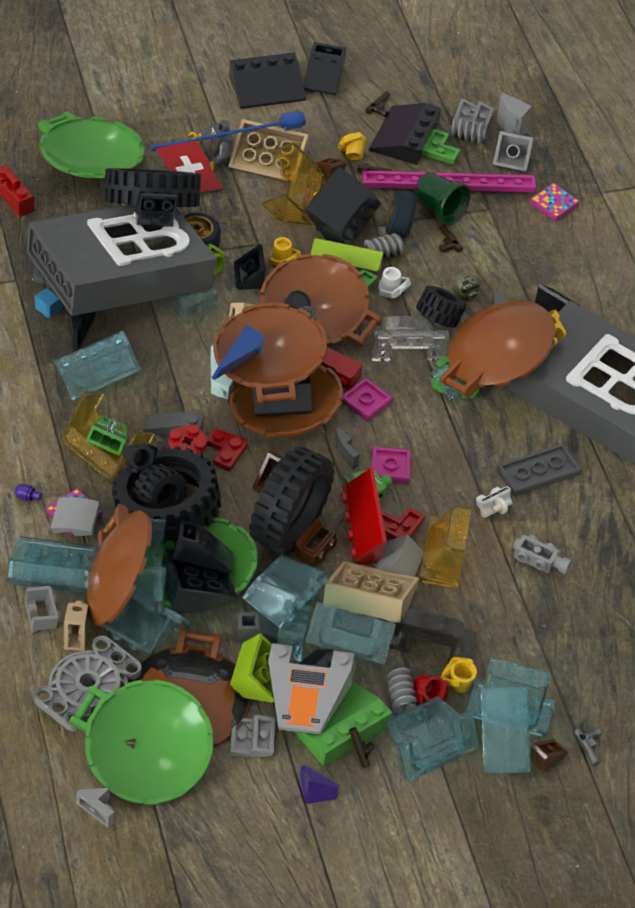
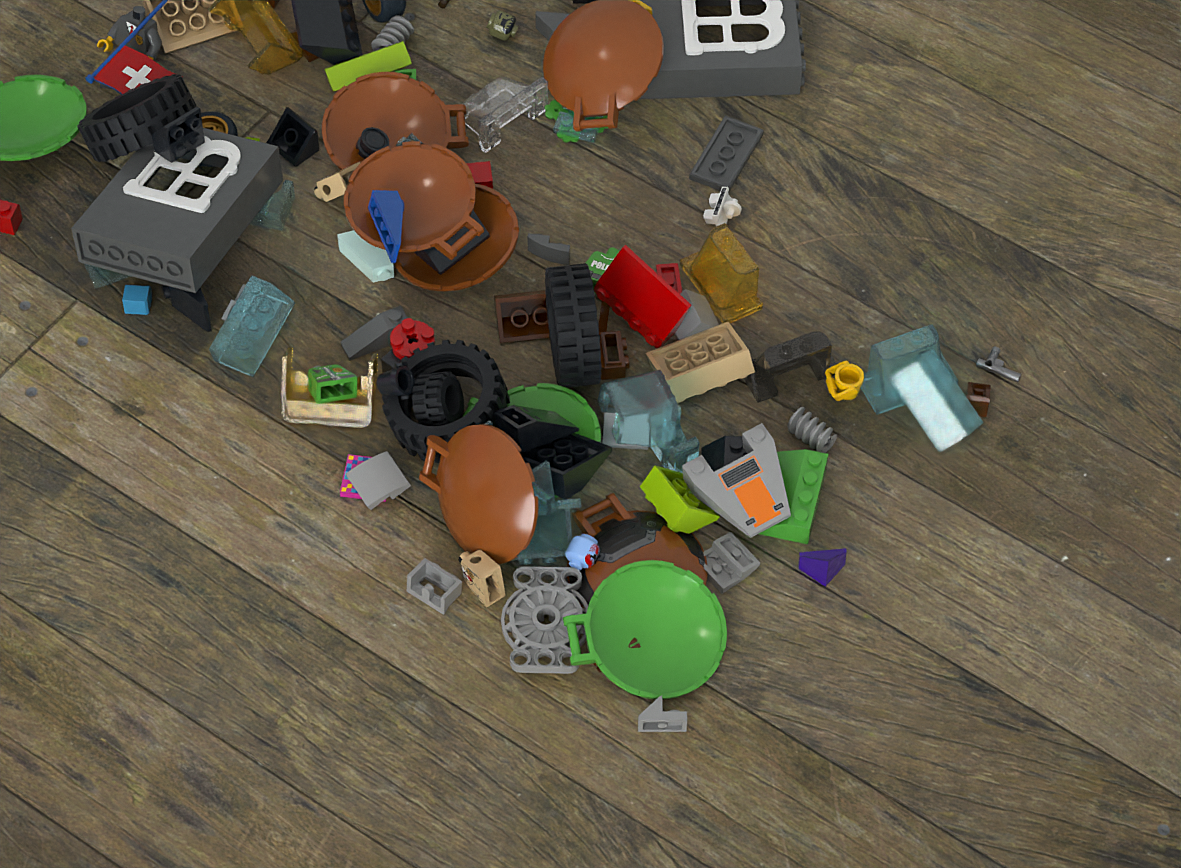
camera: 35 degrees left, 5 degrees up
(27, 492) = (306, 490): dark purple cylinder -> none
(51, 564) = (401, 538): clear light blue slope -> none
(153, 655) = (582, 551): none -> light blue head
(229, 448) = (442, 318): red plate -> none
(253, 623) = (635, 467): dark grey slope -> none
(282, 251) = (306, 103): yellow piece -> none
(350, 633) = (731, 408): clear light blue windscreen -> none
(361, 748) = (829, 502): dark brown hose -> none
(366, 399) = (520, 190): dark pink tile -> none
(392, 283) = (432, 68): white piece -> none
(392, 463) = (598, 235): dark pink tile -> none
(430, 687) = (834, 412): red piece -> none
(431, 736) = (873, 450): clear light blue windscreen -> none
(441, 306) = (506, 59): black tyre -> none
(540, 555) = (806, 229): light grey brick -> none

